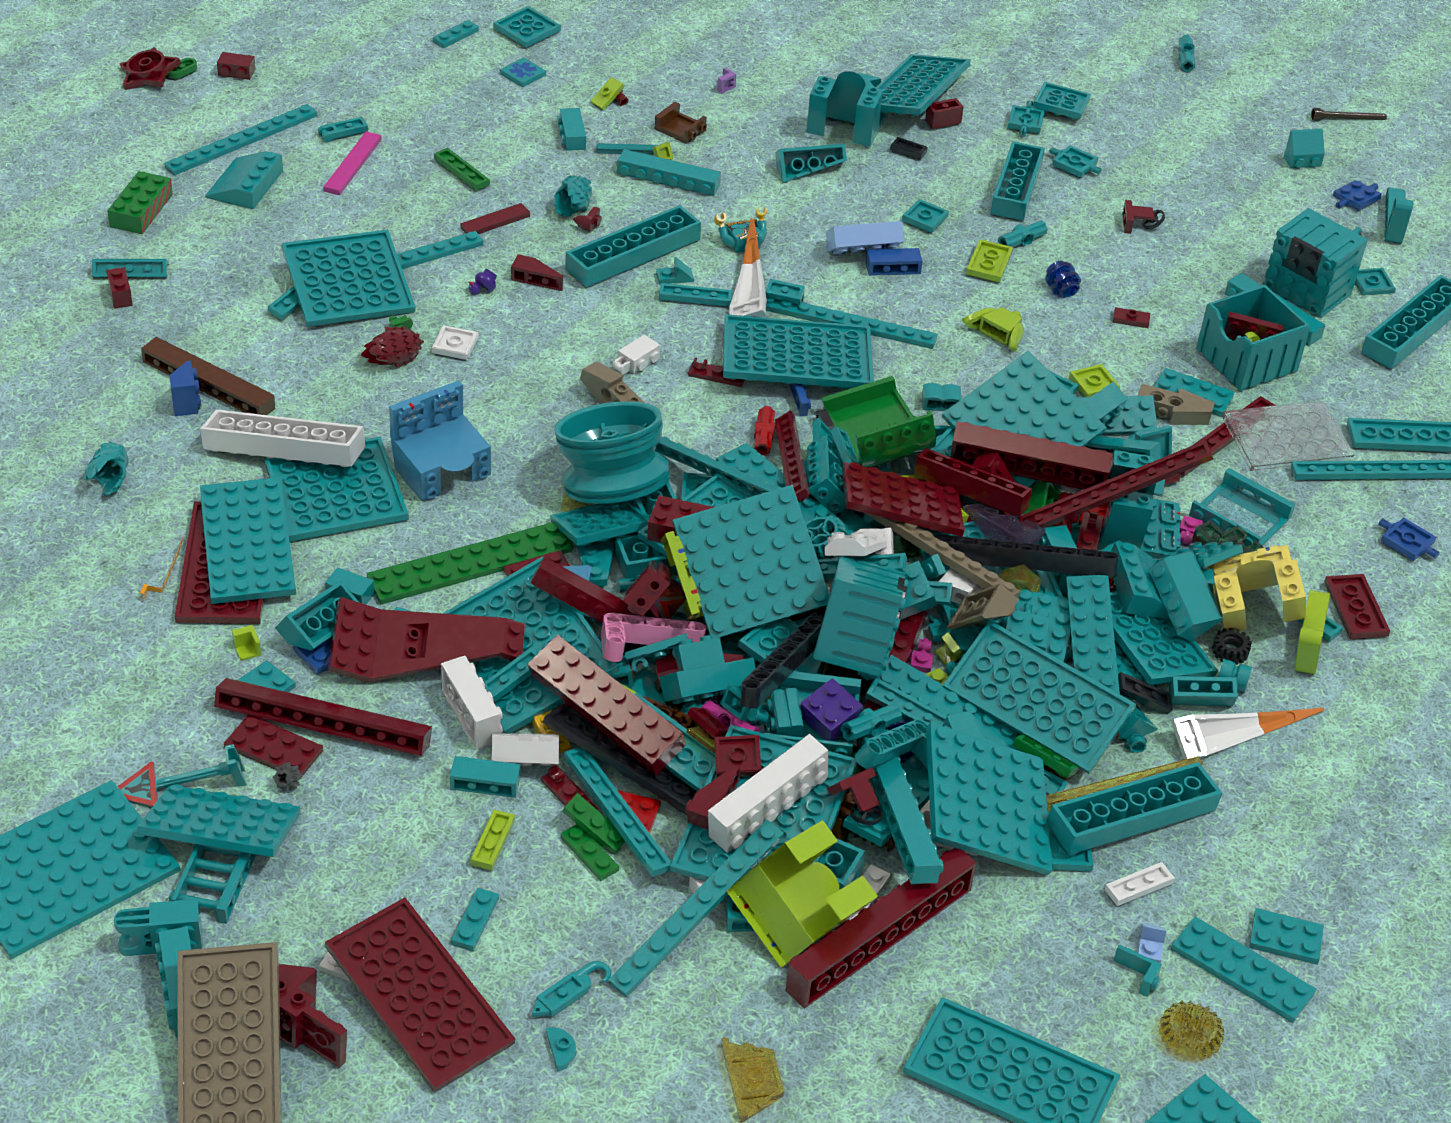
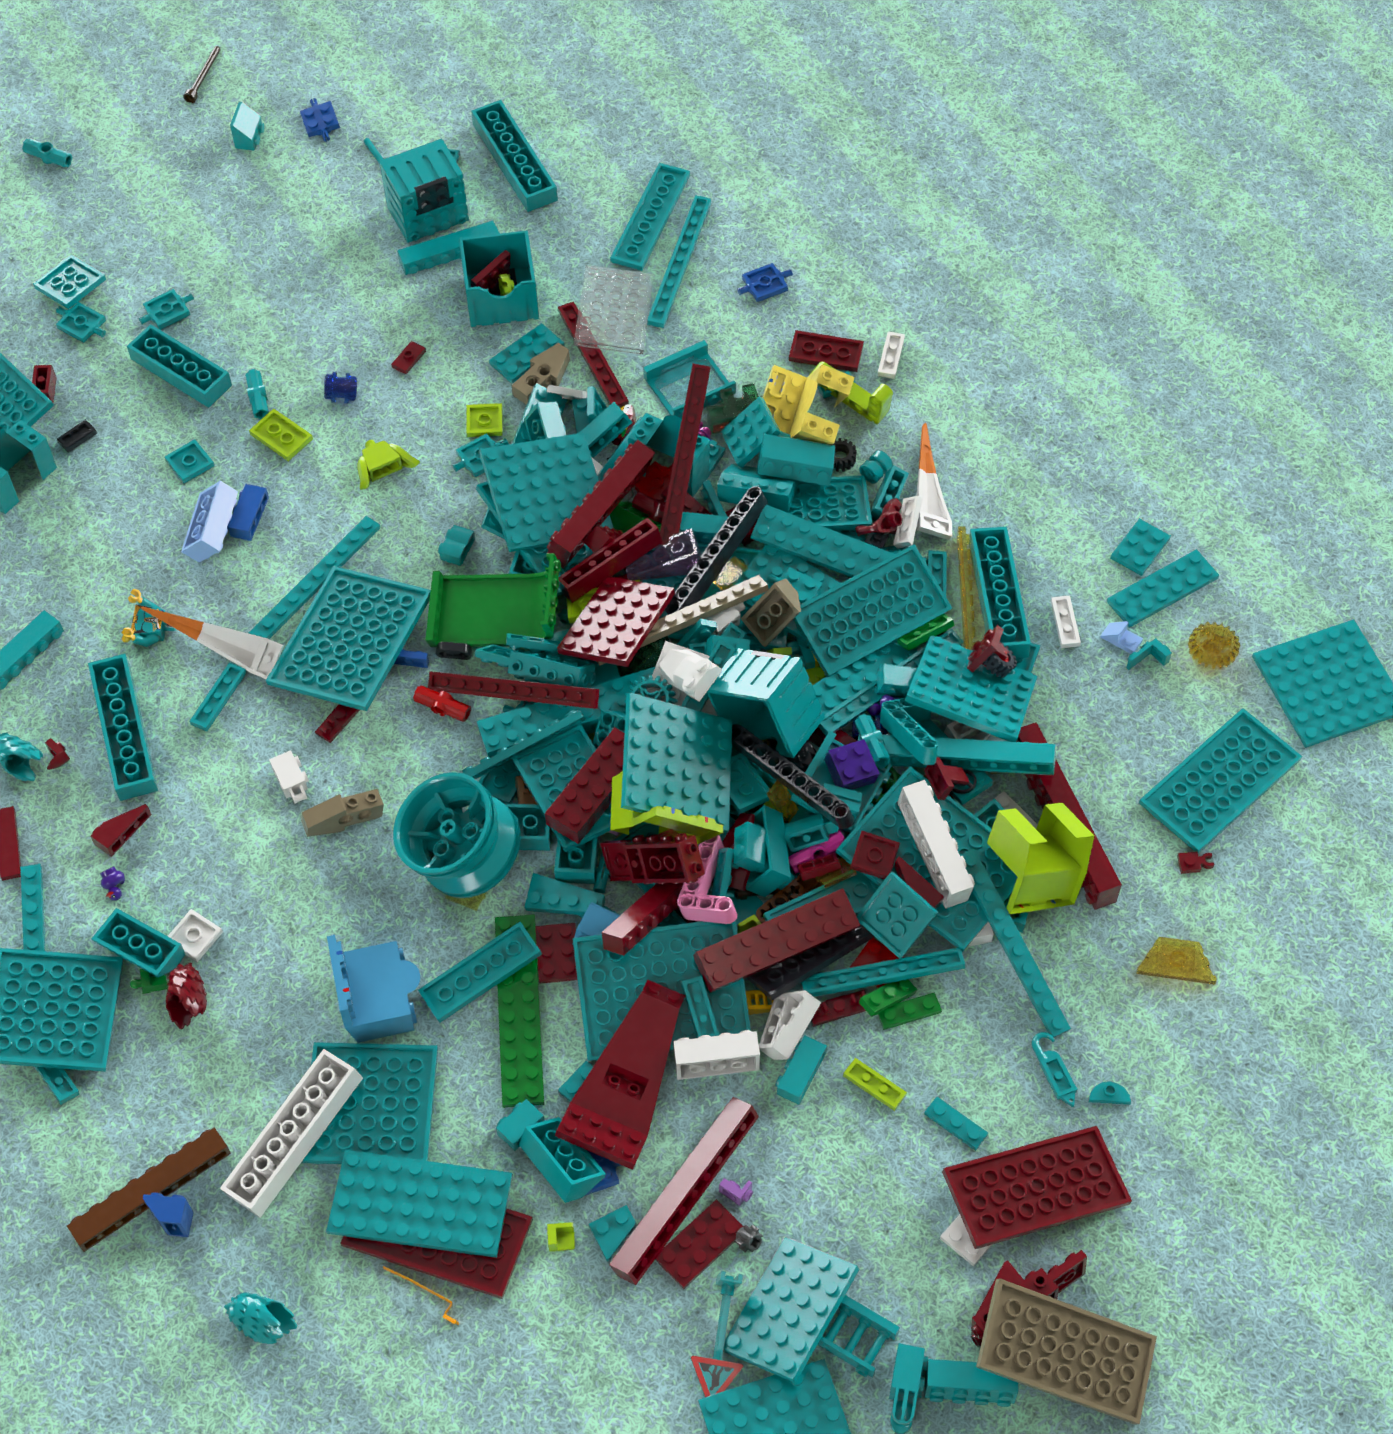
camera: 65 degrees left, 15 degrees up
(334, 757) = (733, 1192): none -> medium lavender bracket
(428, 307) = (139, 943): none -> teal slope
(492, 520) = (479, 972): none -> teal plate
(600, 522) = (530, 883): teal plate -> none
(675, 788) = (896, 915): none -> teal plate
(678, 274) = (176, 705): teal slope -> none
(785, 291) = (256, 617): teal panel -> none
(805, 160) = (56, 530): teal wedge -> none
(889, 1068) = (1192, 863): none -> dark red plate
(1037, 802) = (992, 654): none -> dark red plate
(1130, 758) = (938, 566): none -> teal plate
(1139, 212) = (271, 296): dark red piece -> none
(1160, 419) = (567, 393): none -> white plate
(1163, 690) = (887, 521): none -> dark red animal
(1173, 708) = (910, 513): none -> white plate
(1390, 659) = (891, 355): none -> white plate
(1397, 214) = (381, 109): teal beam -> none

